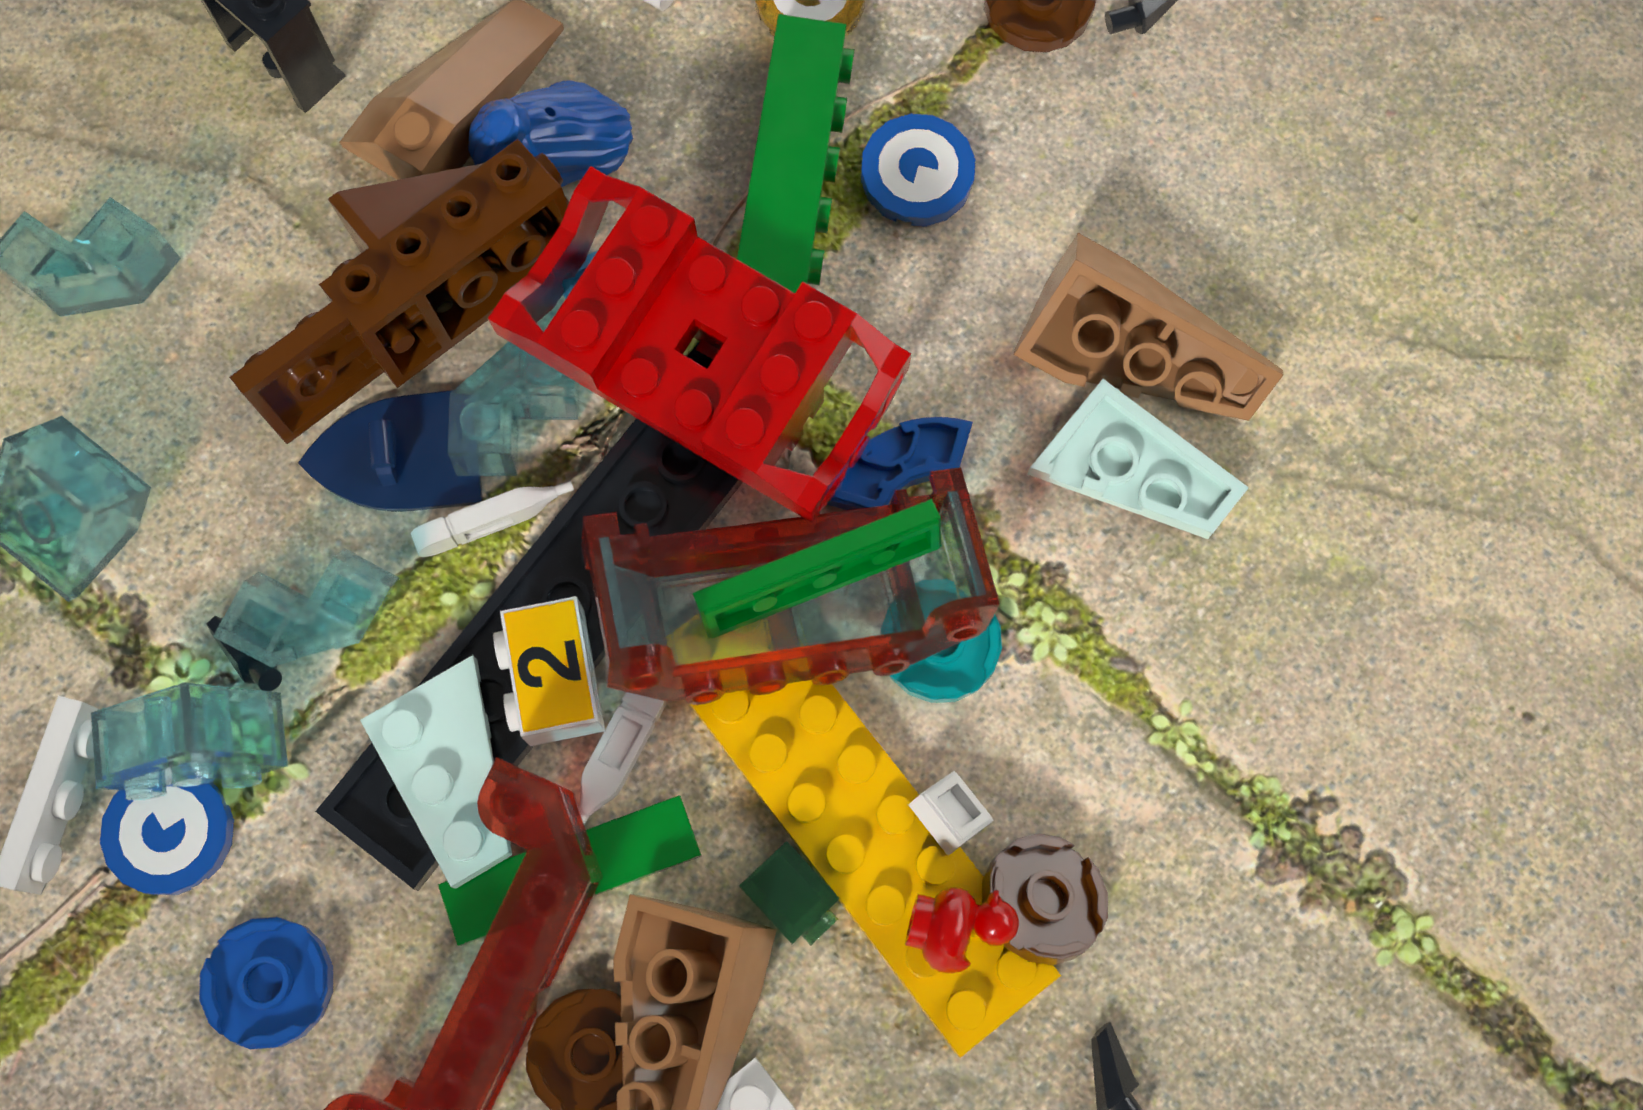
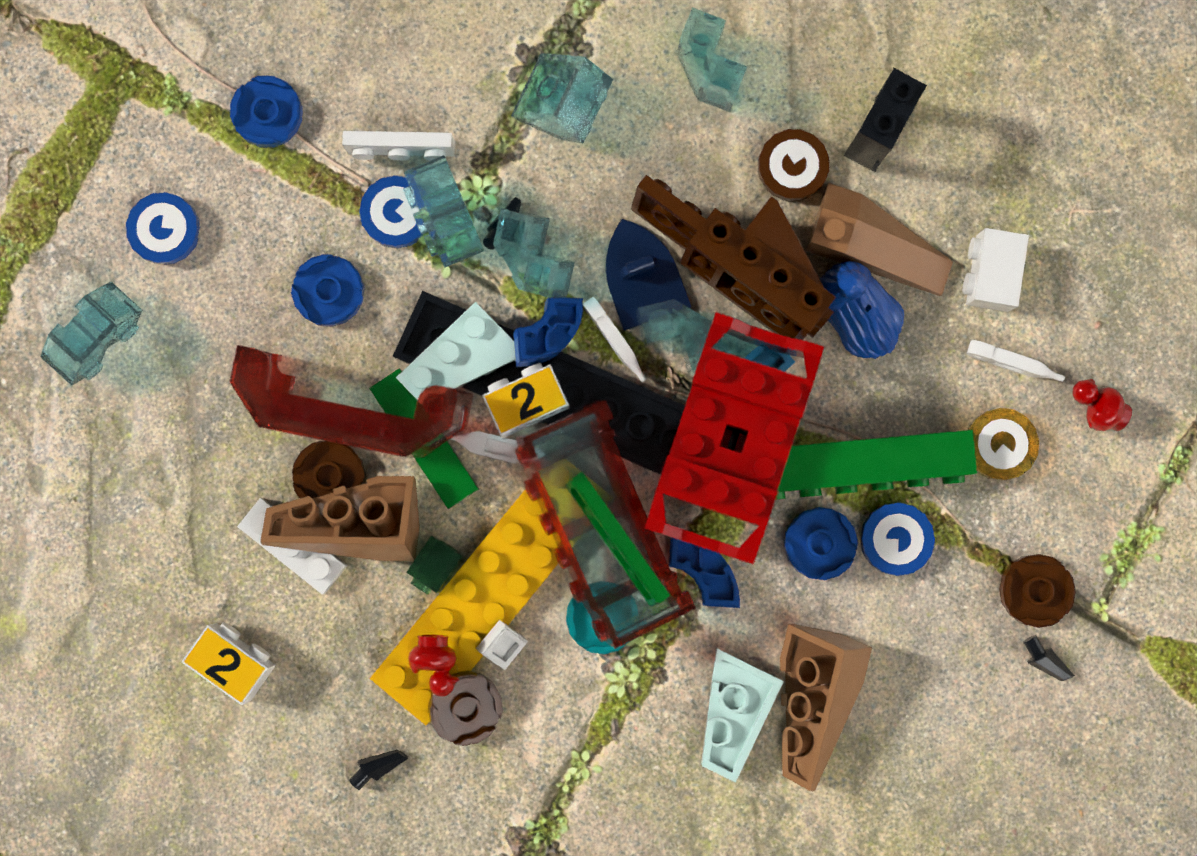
camera: 80 degrees right, 10 degrees up
(288, 183) = (793, 165): none -> reddish brown tile
(450, 610) = (549, 334): none -> blue tile
(899, 280) = (820, 543): none -> blue tile

